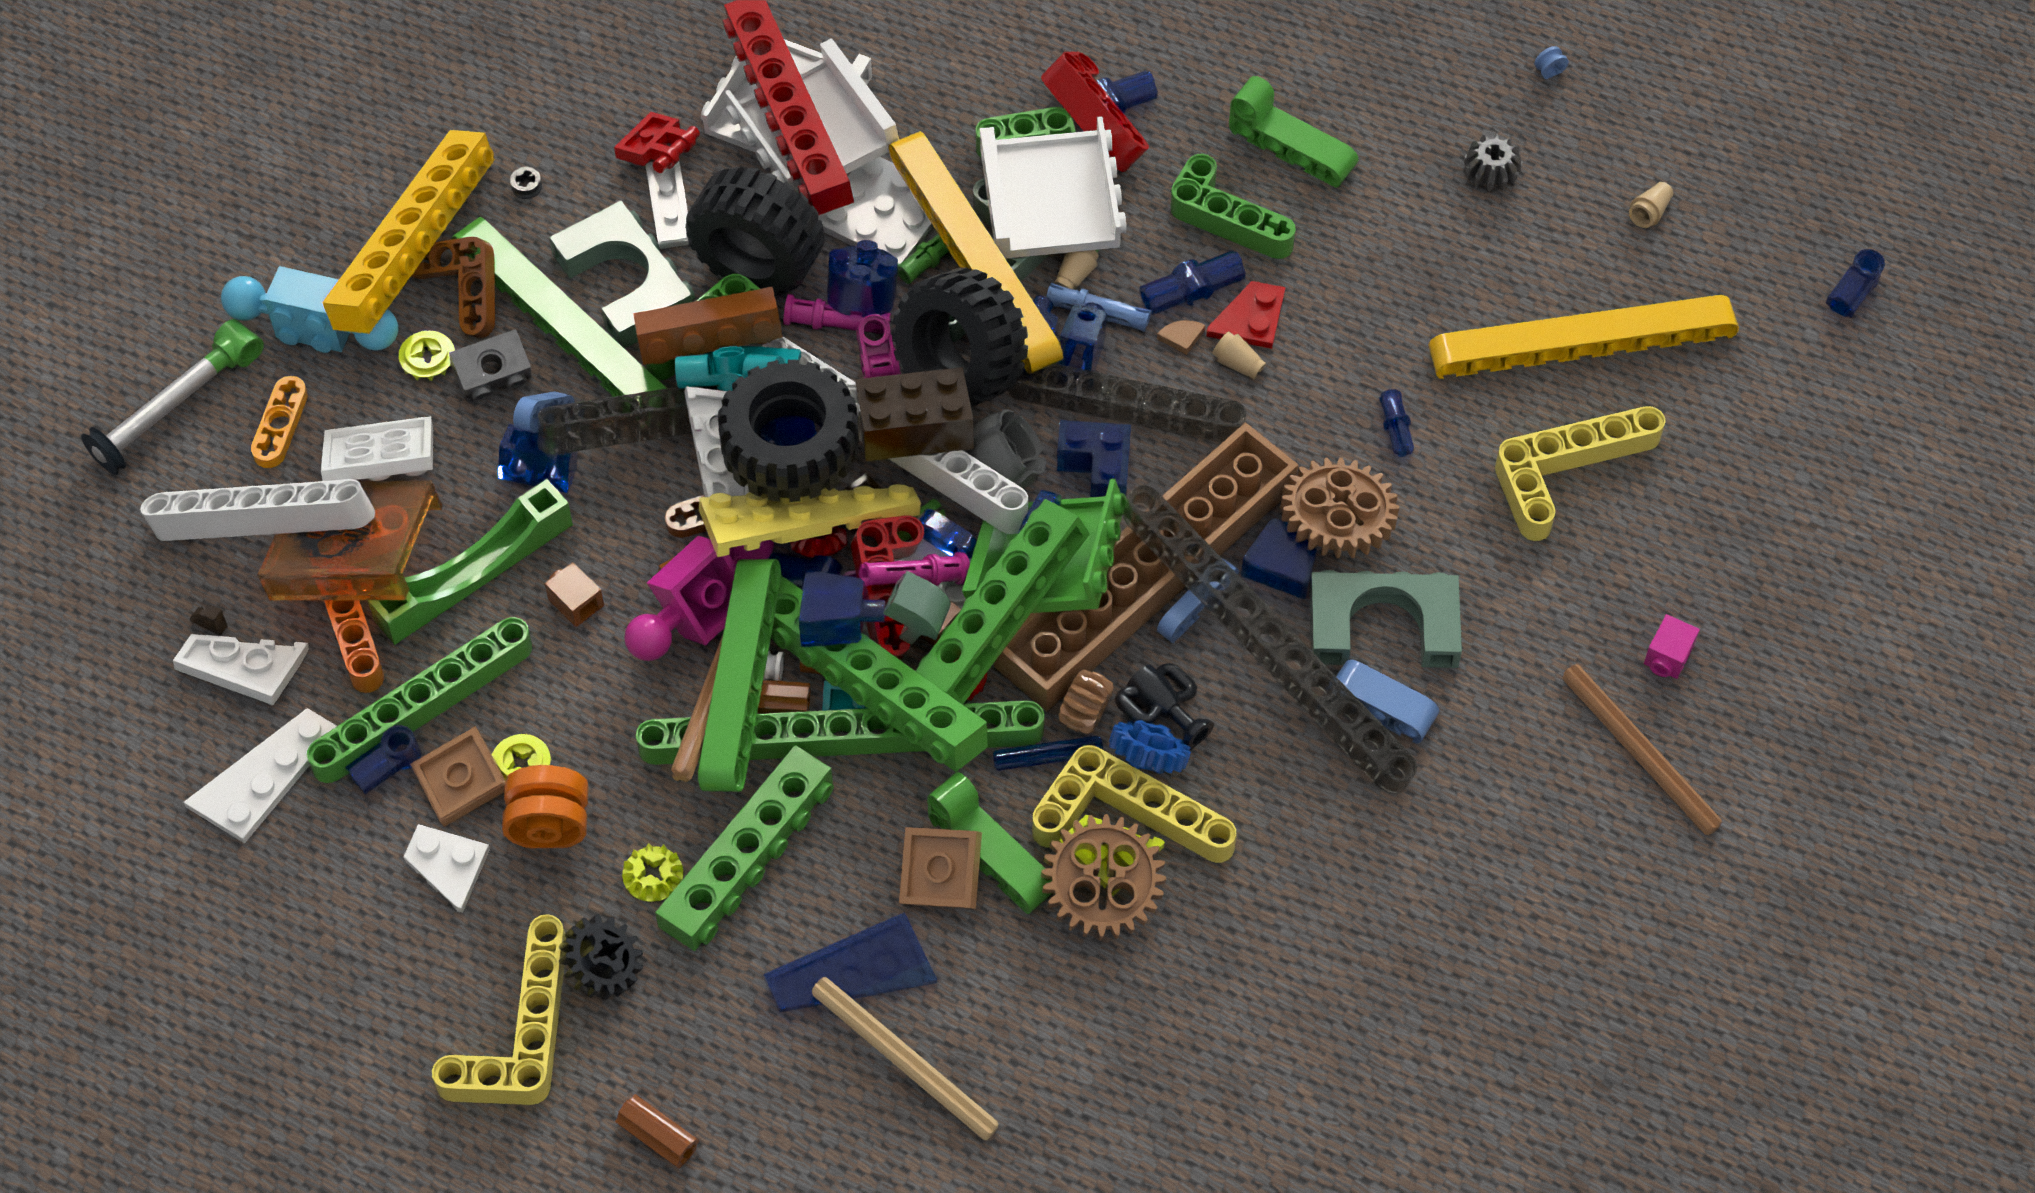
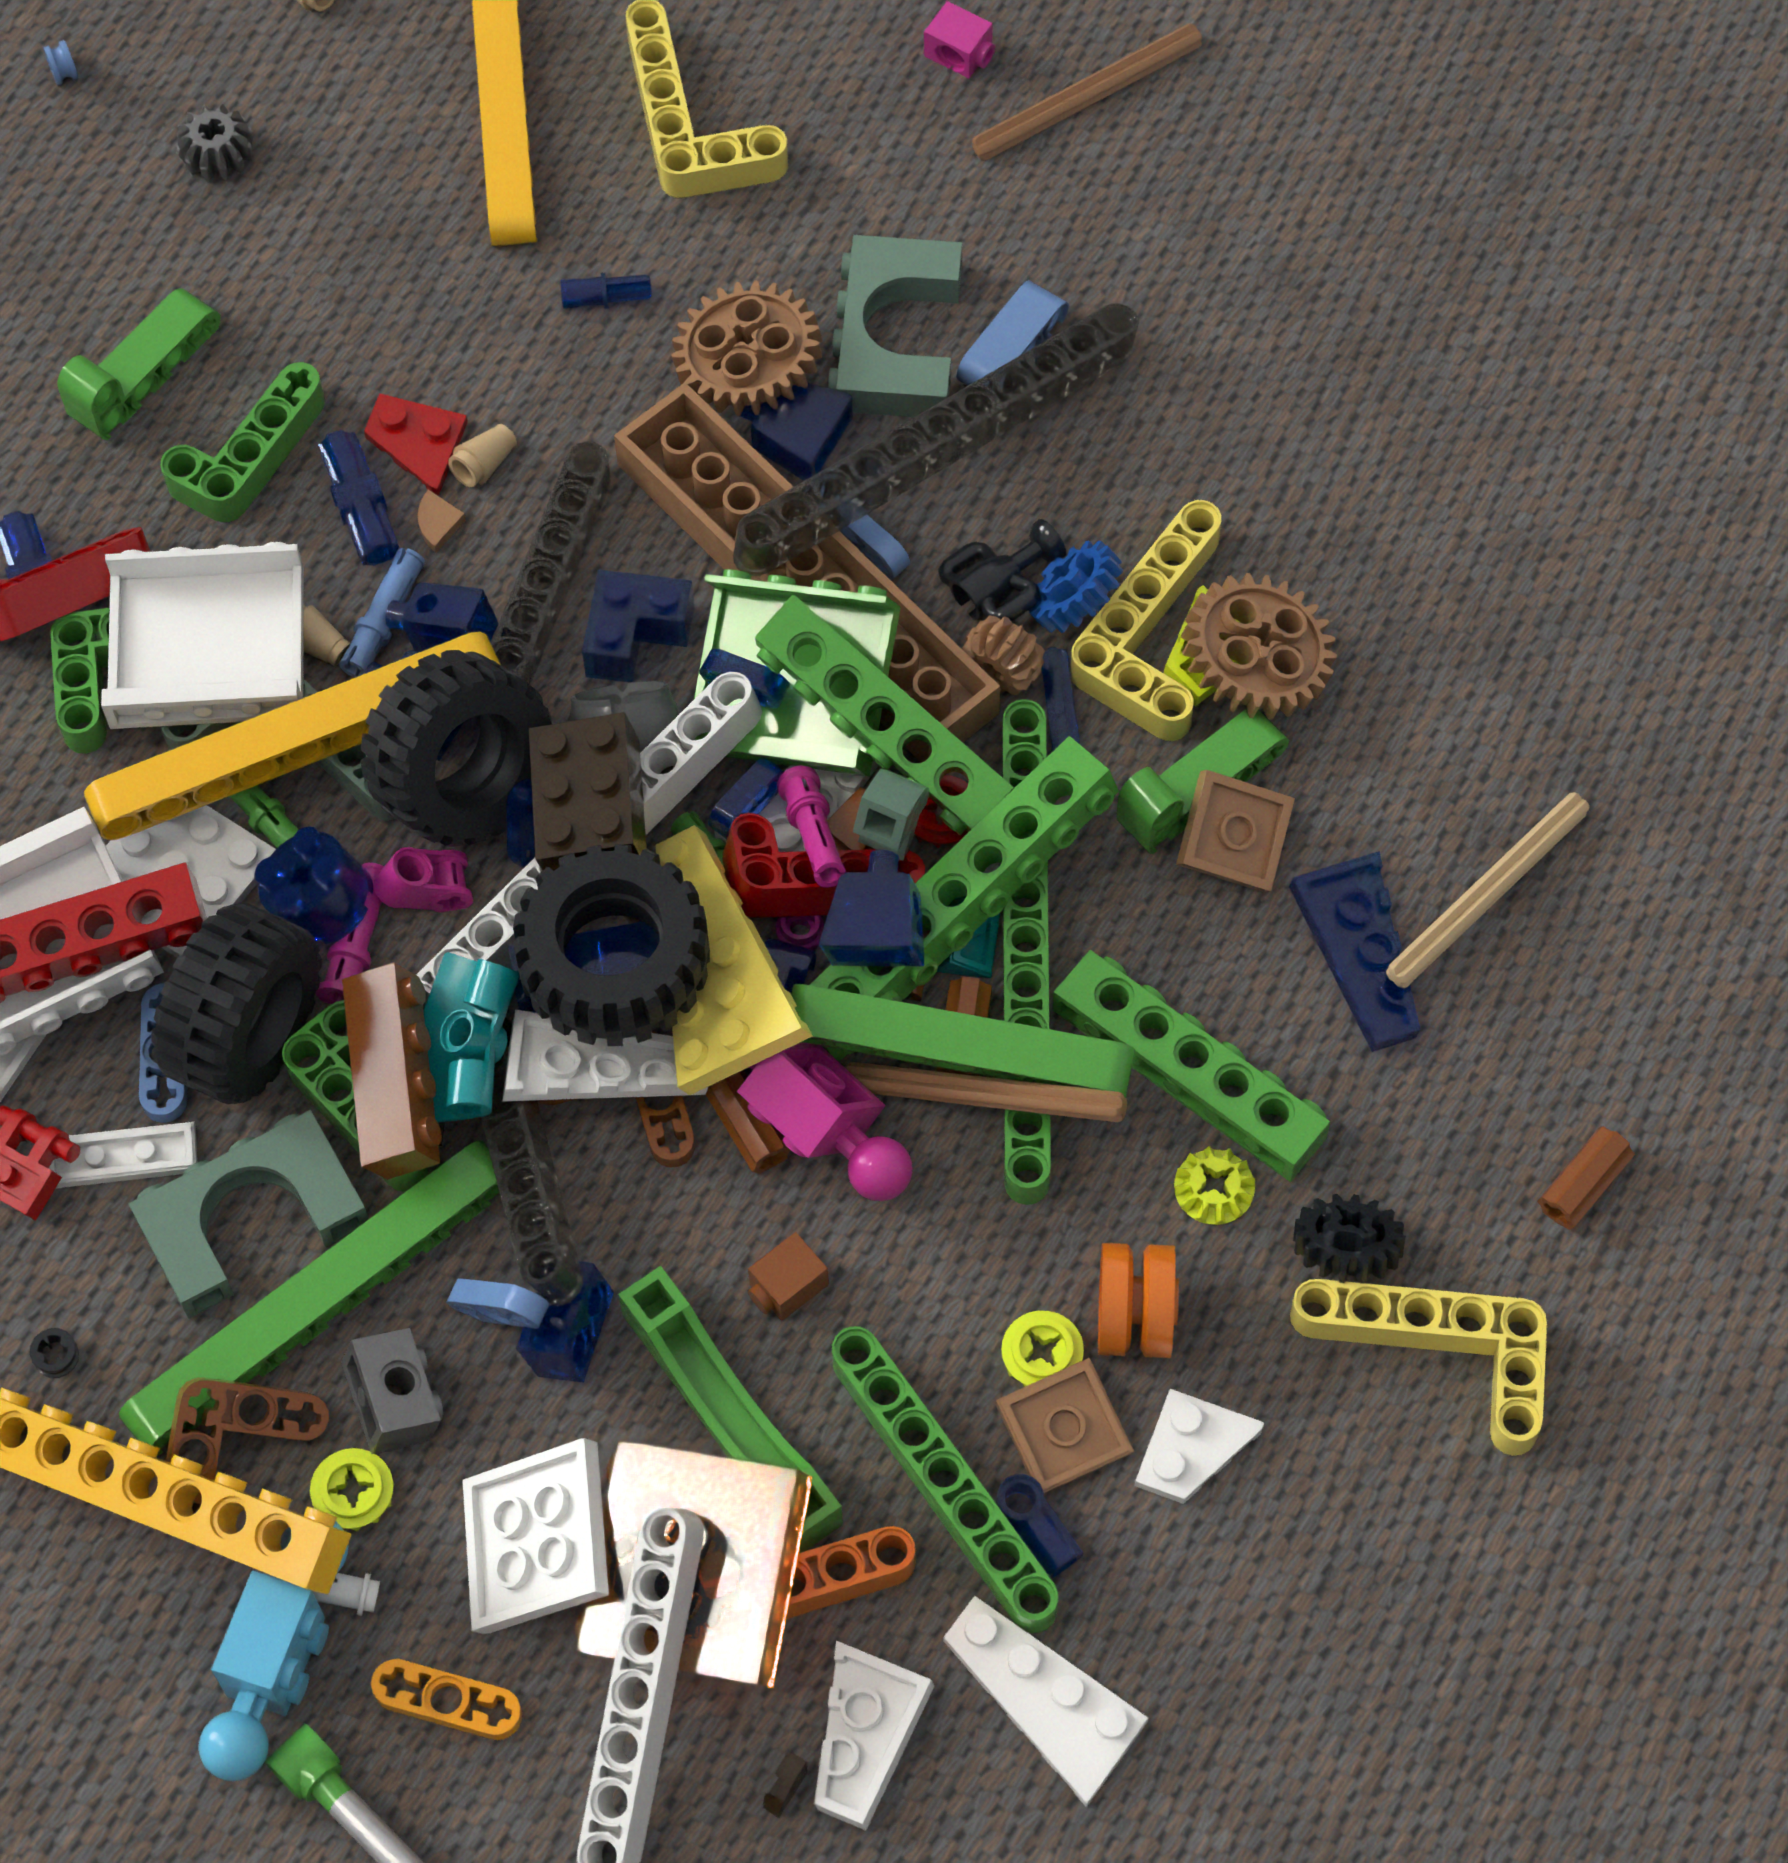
camera: 85 degrees left, 5 degrees up
(353, 361) = (352, 1593): none -> white pin

